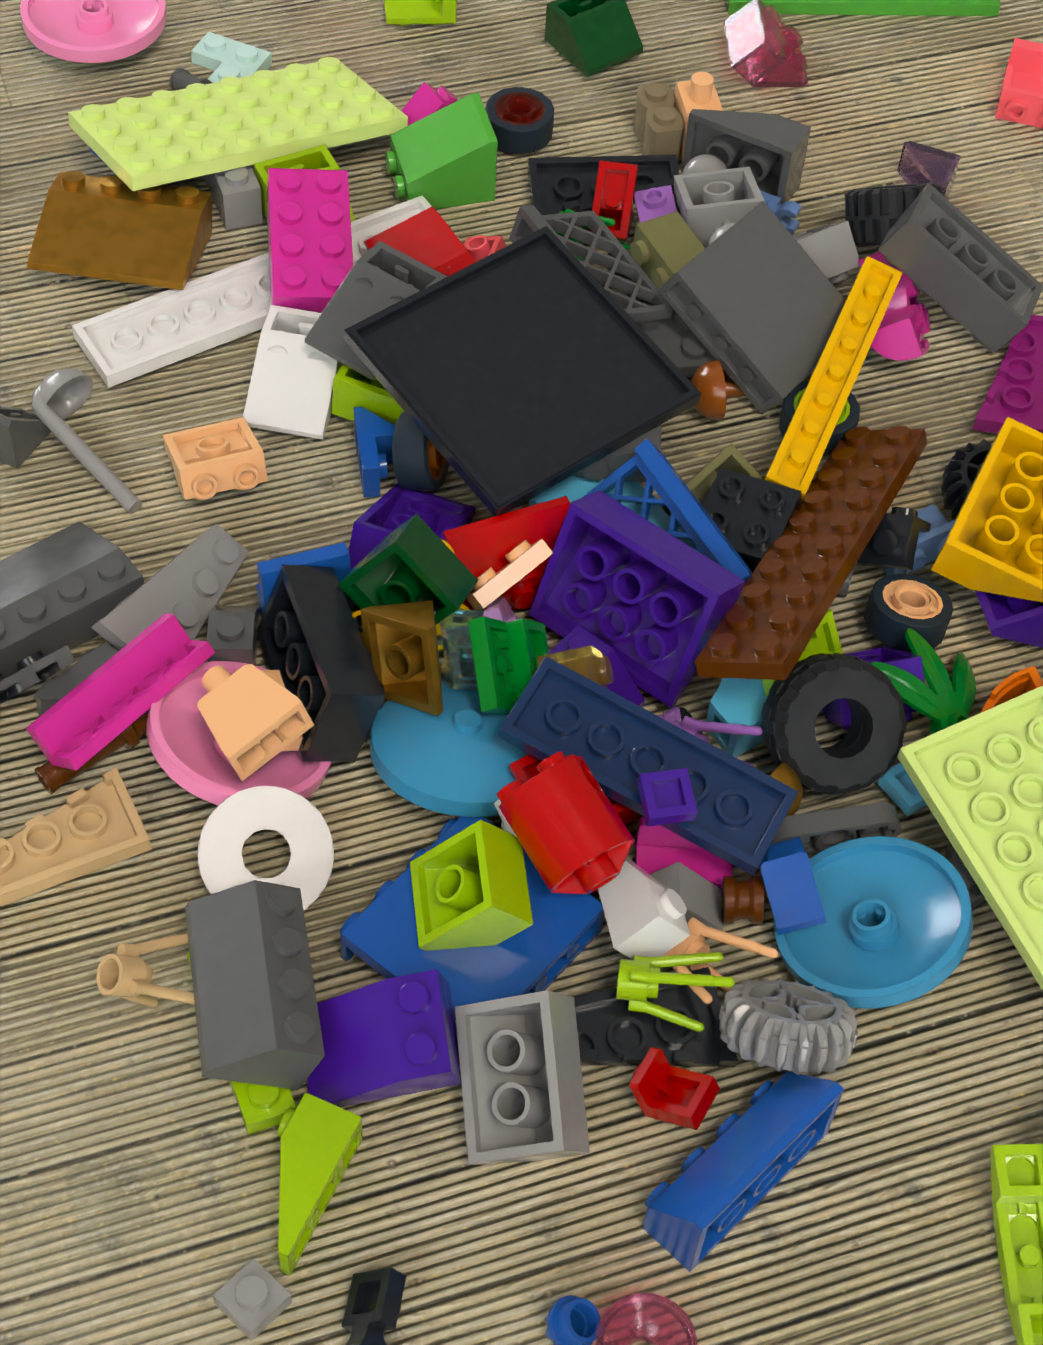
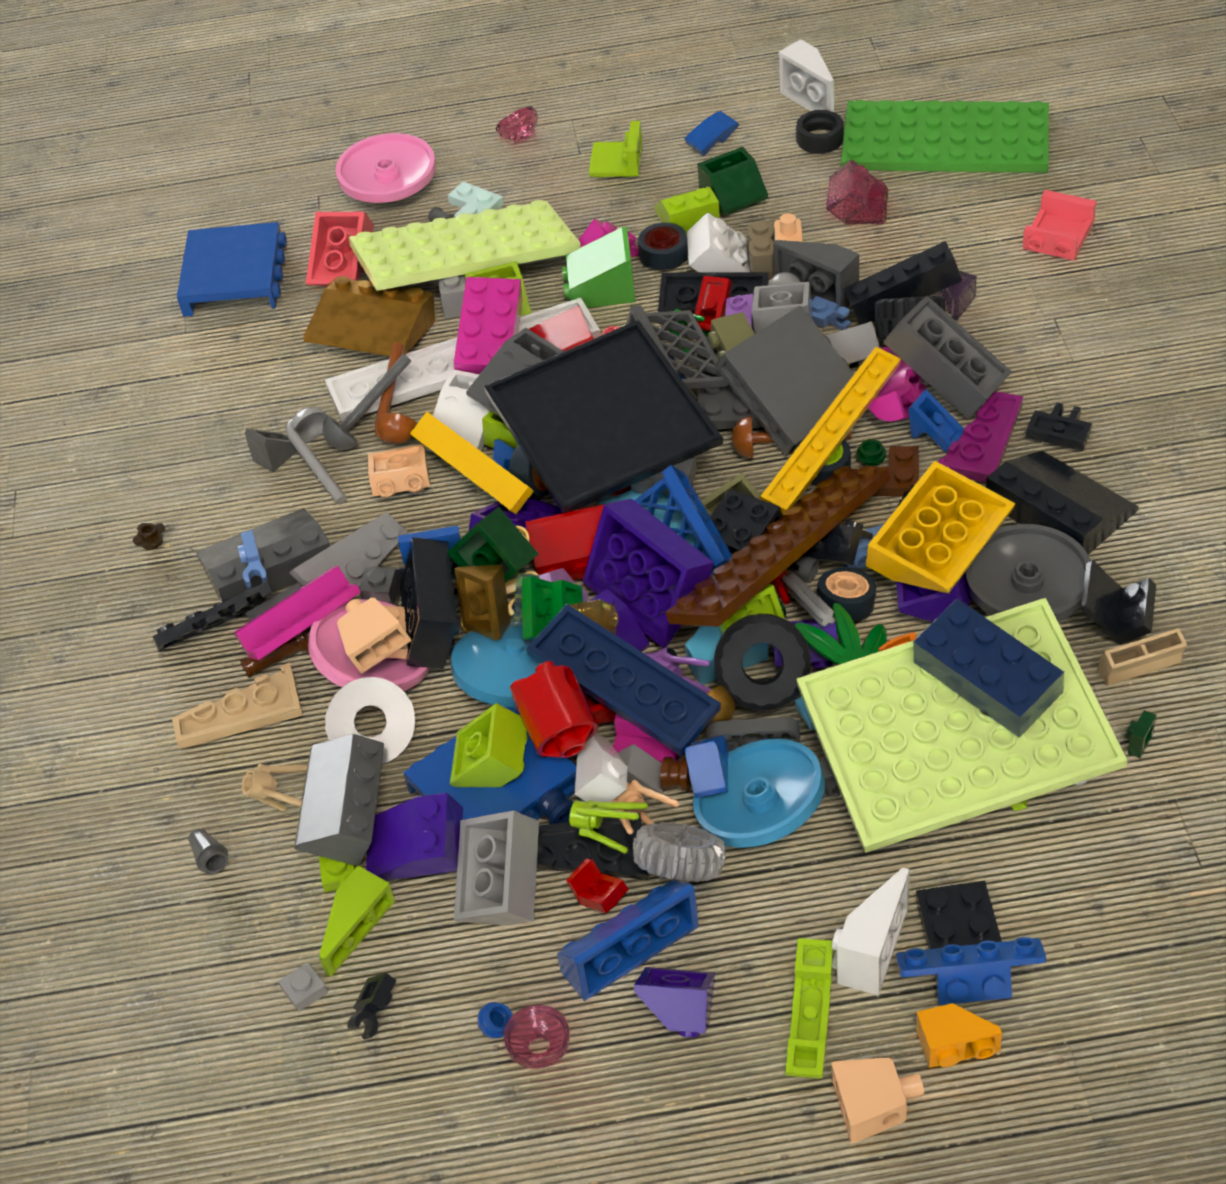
camera: 20 degrees right, 5 degrees down
(31, 602) = (249, 553): none -> medium blue plate
(39, 129) = (331, 247): none -> coral slope
(50, 1087) = (207, 851): none -> dark grey cone
(108, 405) = (338, 434): none -> dark grey piece
(190, 393) = (393, 426): none -> dark orange piece
(330, 443) = (472, 462): none -> yellow tile
(522, 561) = (574, 545): light nougat plate -> none
(552, 68) = (688, 208): none -> lime slope
(581, 969) = (554, 806): none -> dark blue wheel
(594, 121) = (716, 247): none -> white slope
(667, 797) = (624, 698): dark purple plate -> none
(841, 1254) = (678, 998): none -> dark purple slope
(878, 630) = (808, 599): none -> light grey axle
(880, 405) = (871, 452): none -> dark green plate
(881, 159) = (913, 277): none -> black brick
(931, 414) = (902, 470): none -> reddish brown plate
(957, 354) = (931, 417): none -> blue slope

